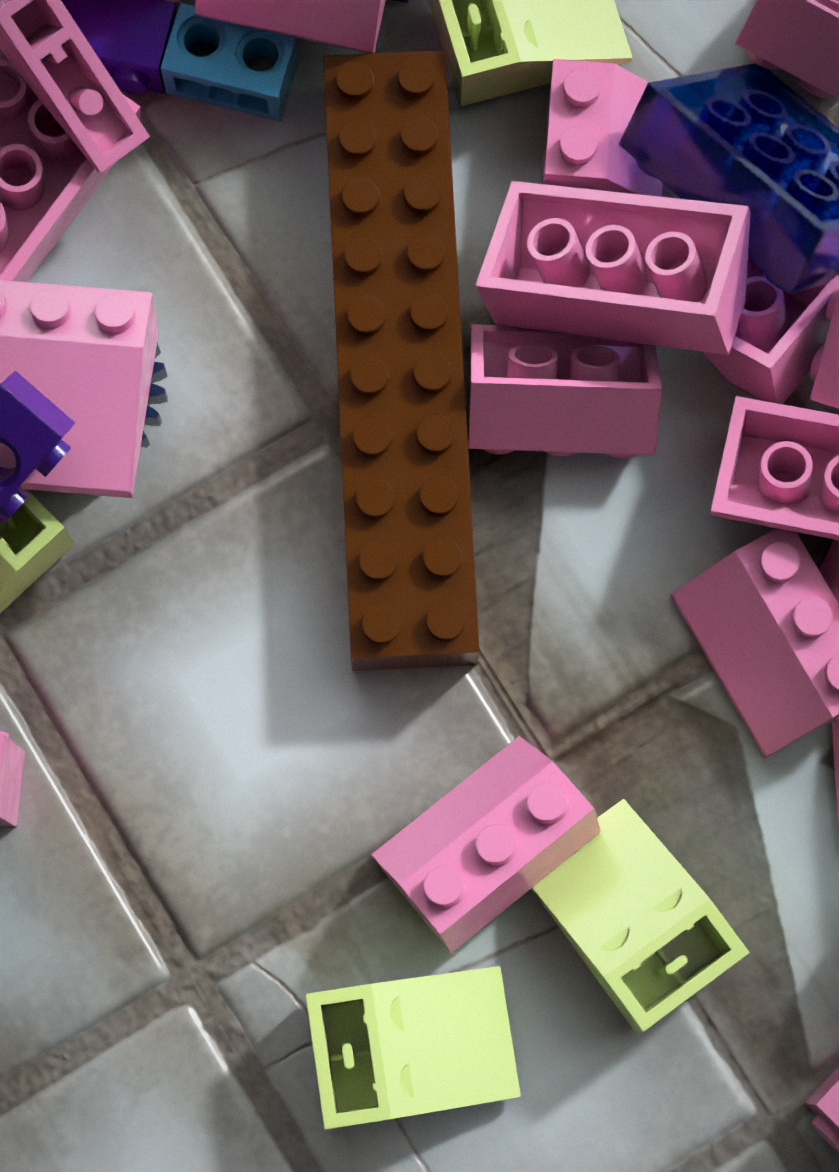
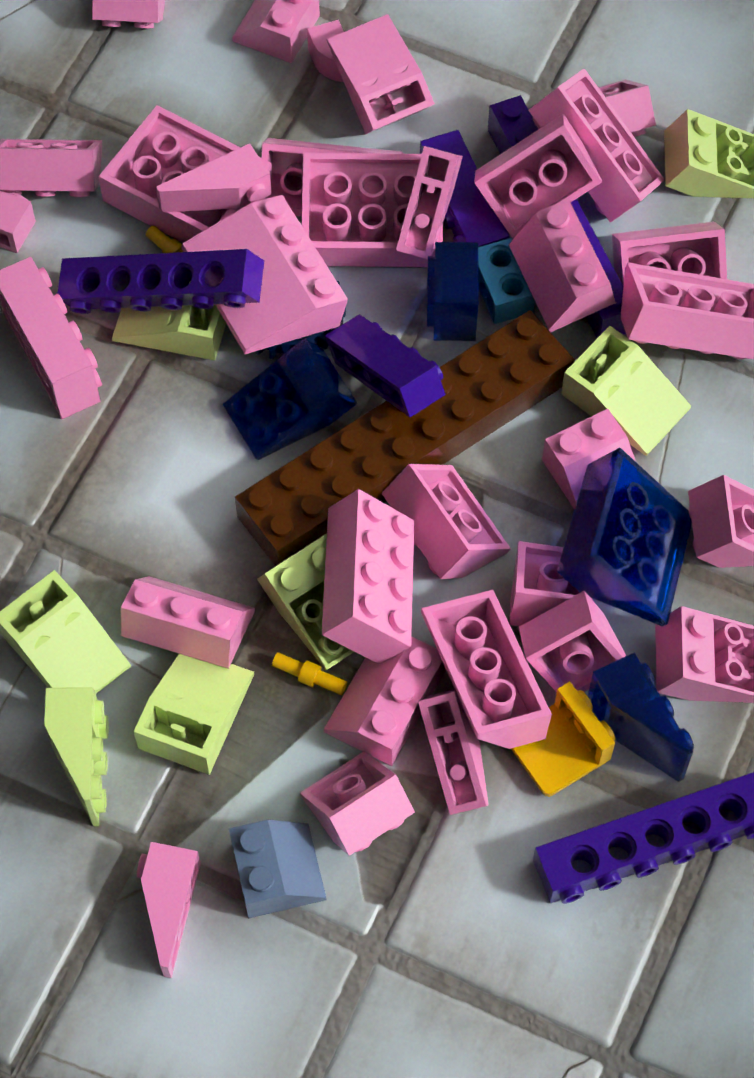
camera: 60 degrees right, 15 degrees down
(215, 136) = (453, 291): none -> clear blue brick
(222, 482) = (289, 400): none -> clear blue slope
(282, 309) = (386, 365): none -> dark purple brick
(577, 636) = (298, 595): none -> yellowish green slope
(596, 1124) = (76, 733): none -> yellowish green slope
(613, 551) = (368, 577): none -> bright pink brick
(618, 266) = (519, 496): bright pink slope -> none
(673, 723) = (309, 673): none -> yellow bar

